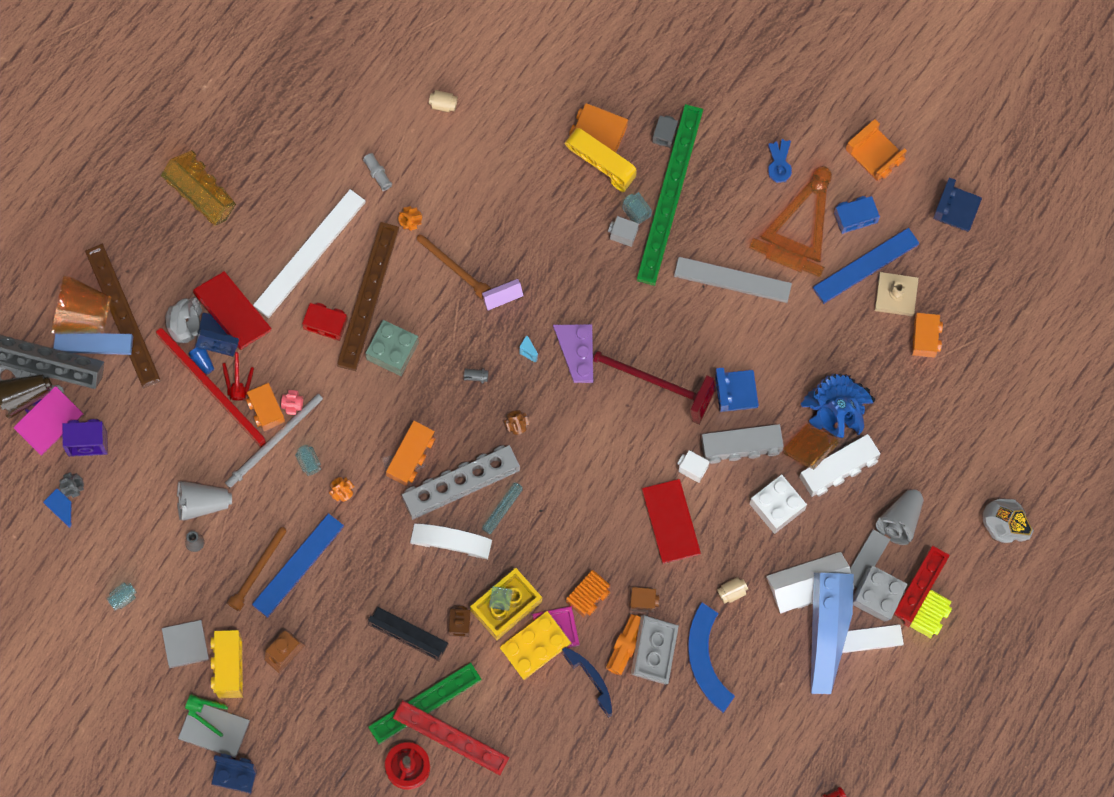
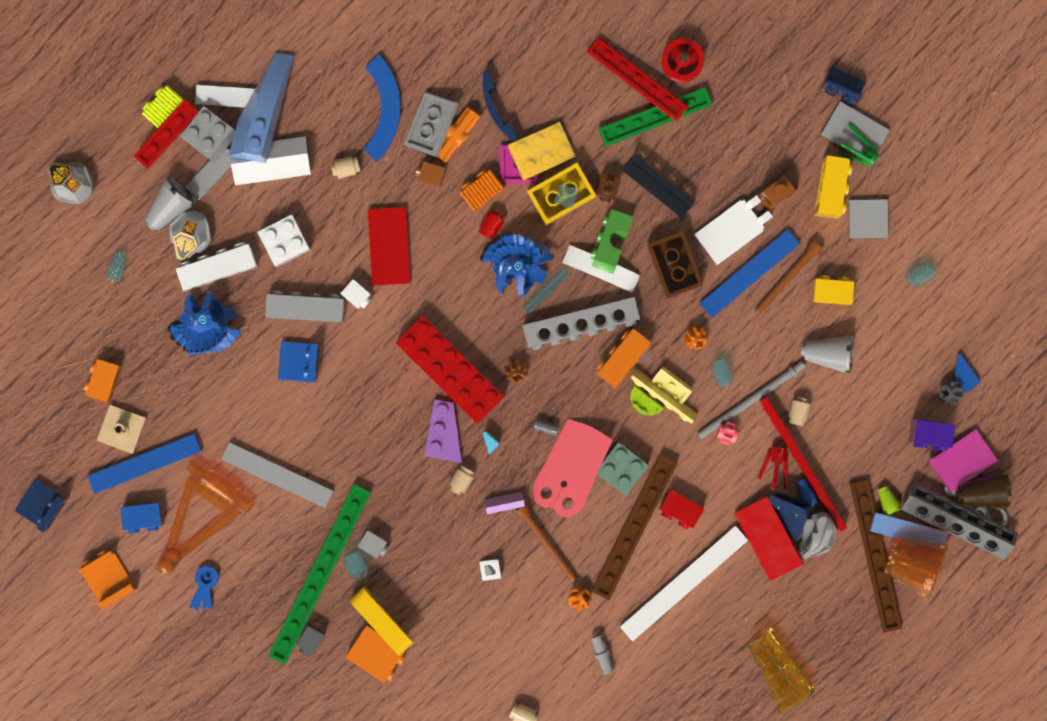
camera: 165 degrees left, 15 degrees up
(117, 368) = (888, 500): none -> lime cone
(197, 544) = (838, 315): dark grey cone -> none
(209, 561) = (833, 291): none -> yellow brick
(223, 437) = (799, 411): none -> tan brick
(265, 406) = (753, 433): orange brick -> none
(323, 605) = (732, 230): none -> white tile
(360, 432) = (667, 389): none -> light yellow bracket
(376, 555) = (674, 265): none -> reddish brown brick
(381, 417) = (643, 403): none -> lime tile
(439, 348) = (574, 460): none -> coral piece
(444, 584) = (606, 255): none -> bright green arch
(503, 230) = (490, 569): none -> white slope
(536, 530) = (519, 258): none -> blue piece
(549, 307) = (461, 480): none -> tan brick
(571, 561) = (491, 224): none -> red brick
(583, 410) = (449, 370): none -> red brick
(701, 399) = (336, 357): dark red tile -> none
(810, 446) = (240, 290): clear orange tile -> none
(874, 492) = (189, 234): none -> light grey helmet
(940, 446) = (115, 269): none -> clear light blue cone

